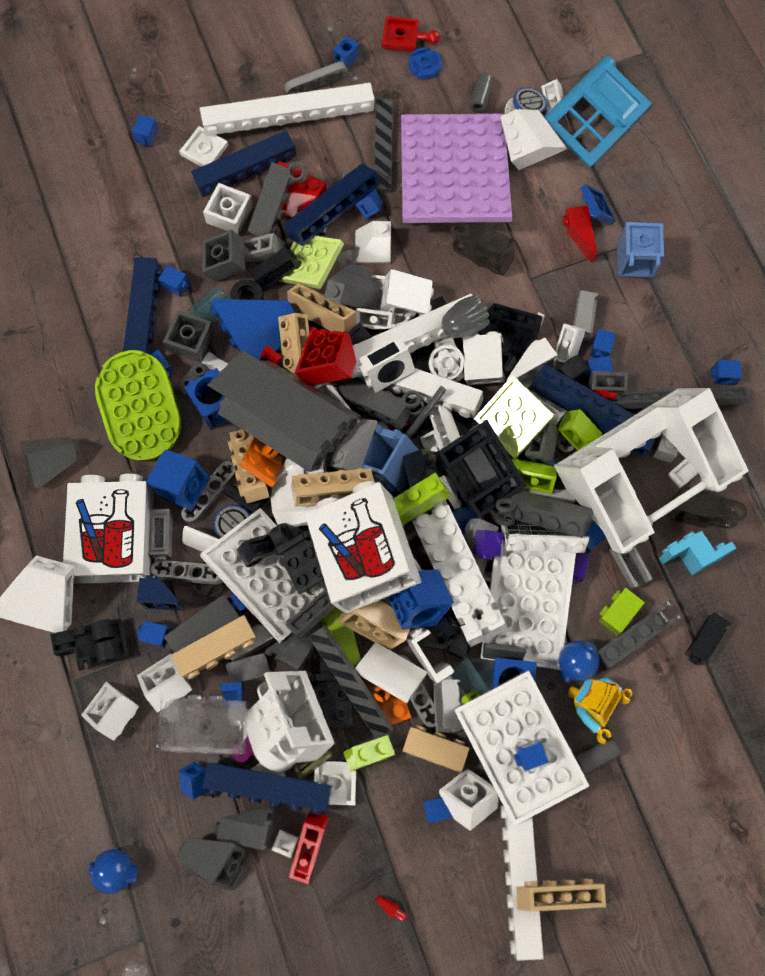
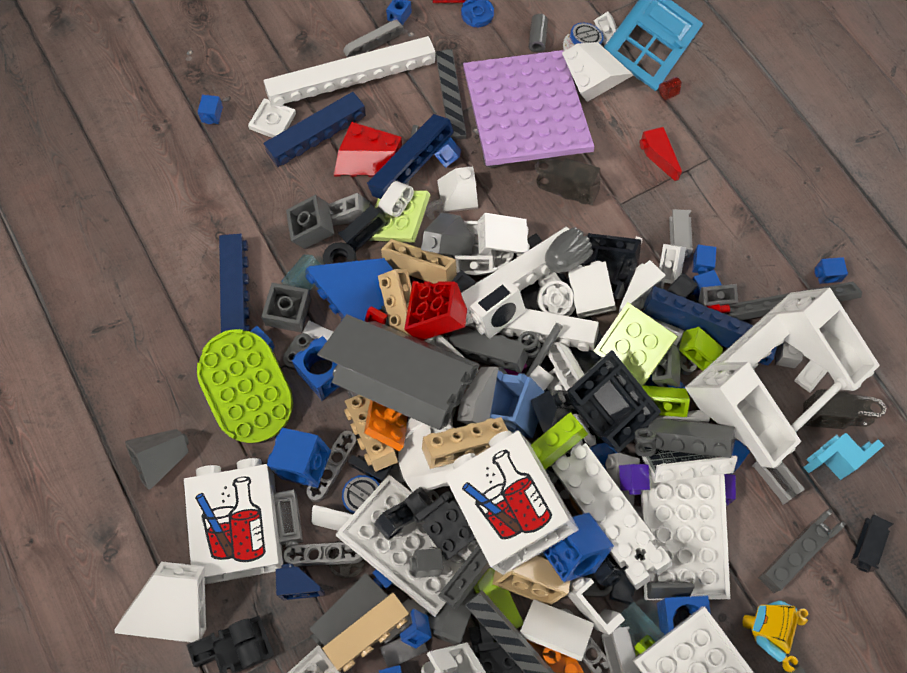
camera: 10 degrees left, 5 degrees down
(153, 633) = (296, 627): blue brick -> none
(173, 281) = (262, 254): blue brick -> none
(228, 208) = (306, 175): white brick -> none
(262, 653) = (418, 631): none -> blue panel
(273, 197) = (351, 158): dark grey hinge -> none
(279, 593) = (426, 563): none -> dark grey brick
(309, 243) = (396, 198): none -> white beam
(419, 437) = (541, 377): none -> white brick
(578, 661) = (747, 587): blue brick -> none
(598, 206) = (673, 126): blue plate -> none
(604, 166) = (670, 88): none -> clear red brick
(621, 611) = (778, 527): lime brick -> none
(640, 249) = (724, 162): medium blue container -> none

